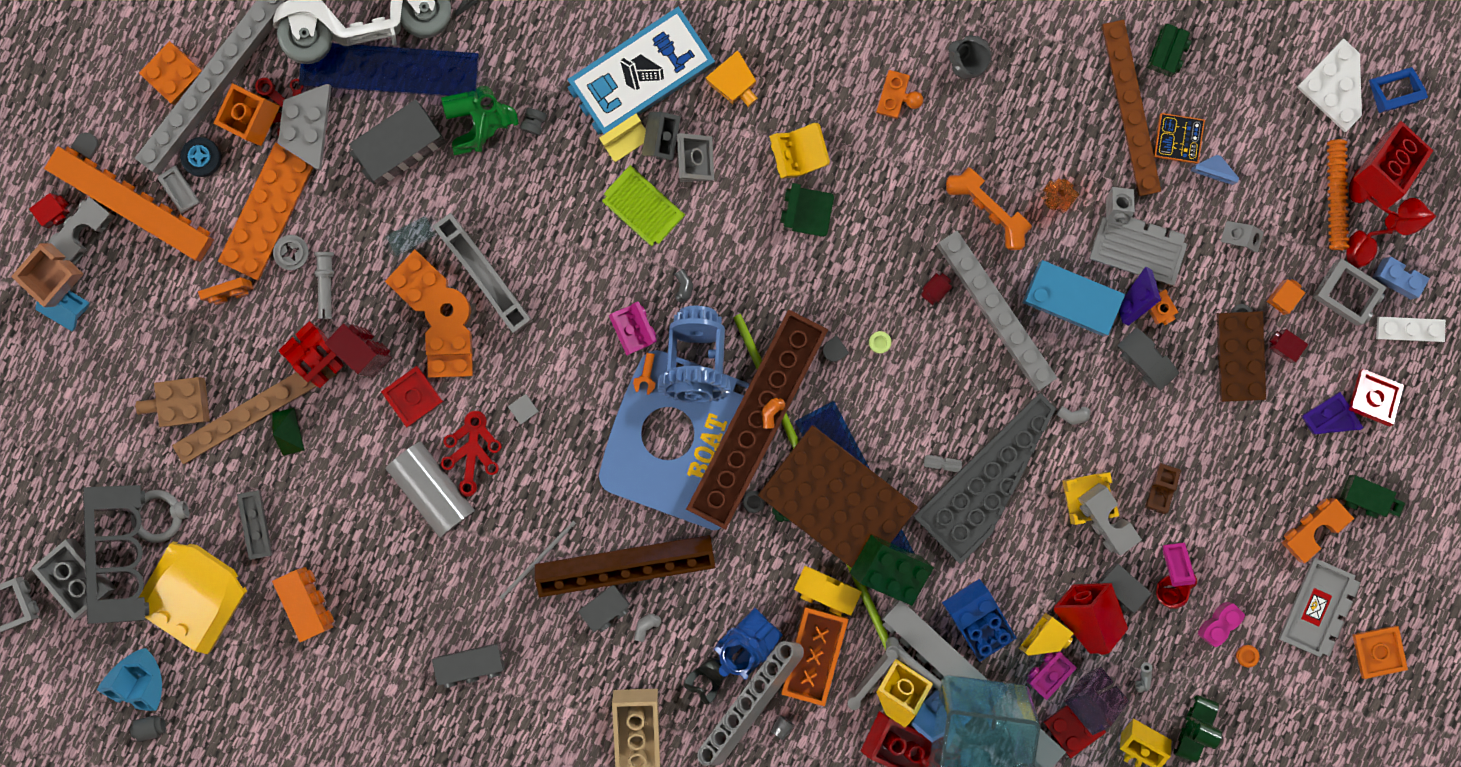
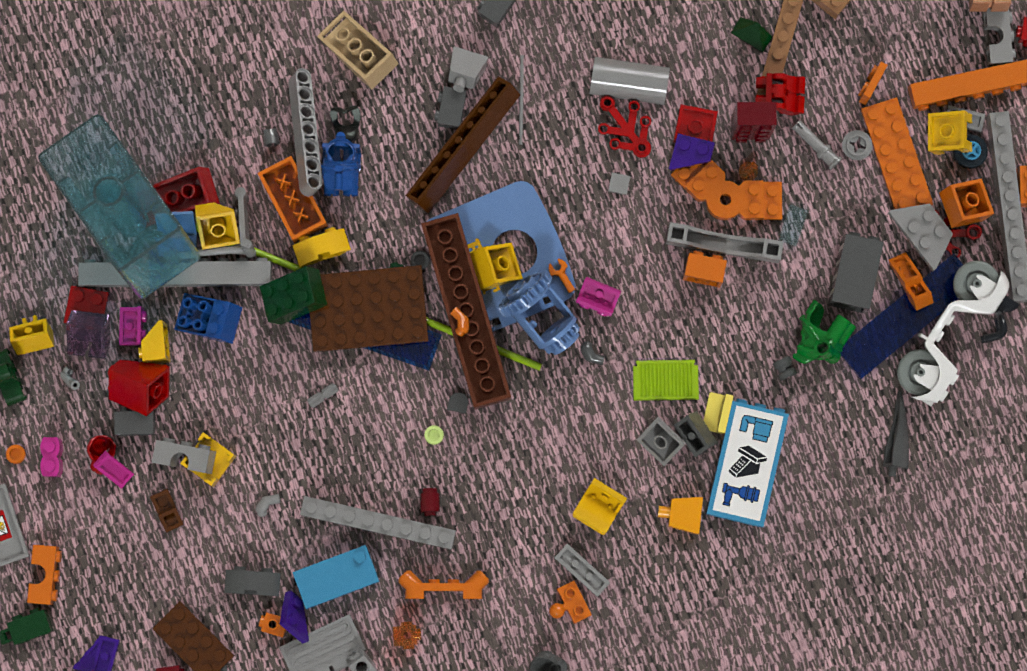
camera: 135 degrees right, 5 degrees down
(202, 188) = (948, 132): none -> yellow panel
(357, 93) = (912, 281): none -> orange slope
(404, 316) = (748, 171): none -> clear orange plate
(436, 377) = (690, 151): none -> dark purple wing
(522, 265) = (704, 269): none -> orange brick
(560, 630) = (466, 68): none -> light grey torso
(644, 624) = (416, 123): light grey arm -> none
(694, 435) = (496, 265): none -> yellow slope
(807, 211) = (558, 474): dark green bracket -> none
(862, 113) = (582, 570): none -> light grey plate
(975, 498) = (281, 393): dark grey wing -> none

